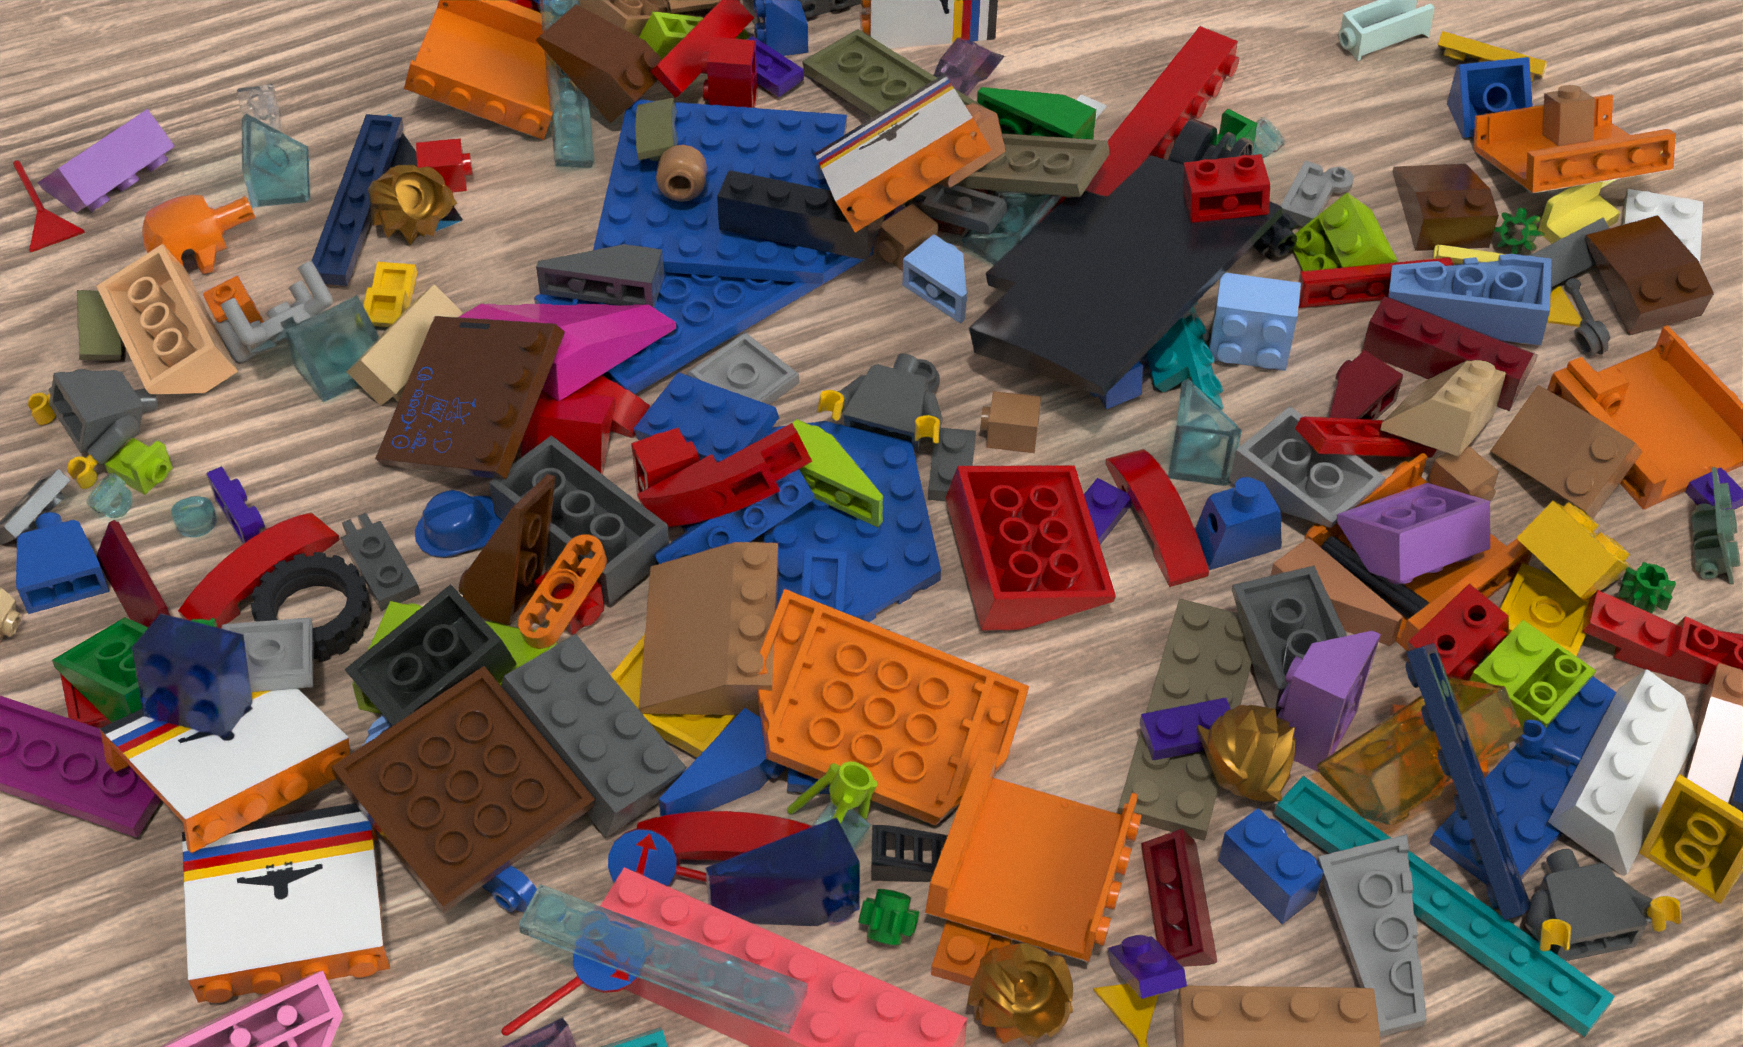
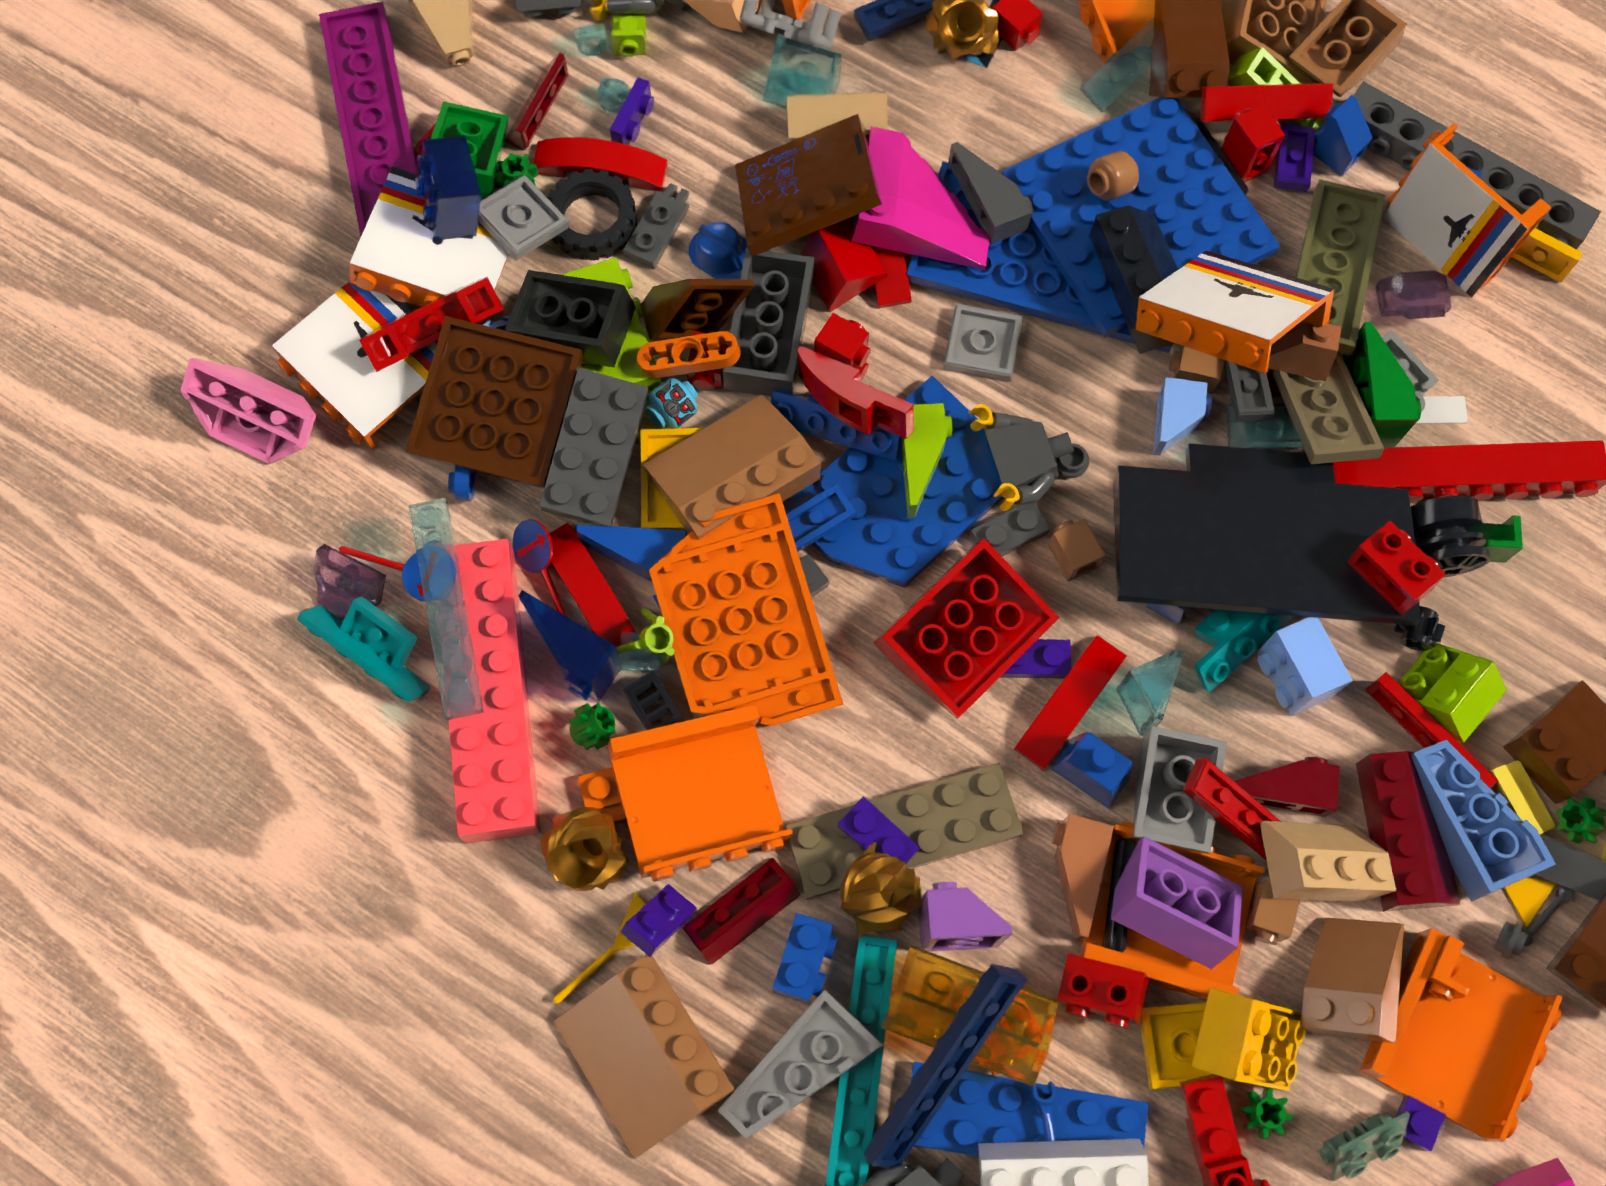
camera: 55 degrees right, 20 degrees up
(56, 565) = (517, 48): blue torso -> none
(316, 793) = (424, 324): none -> red slope
(390, 292) = (880, 73): yellow slope -> none
(600, 639) = (671, 403): none -> head
(655, 128) = (1140, 131): olive slope -> none
(708, 416) = (916, 346): blue plate -> none
(1269, 136) = (1529, 563): clear light blue tile -> none
(1281, 621) = (1014, 861): dark grey slope -> none
(1313, 189) = (1494, 632): light grey hinge -> none
(1535, 672) = (1099, 1065): lime slope -> none

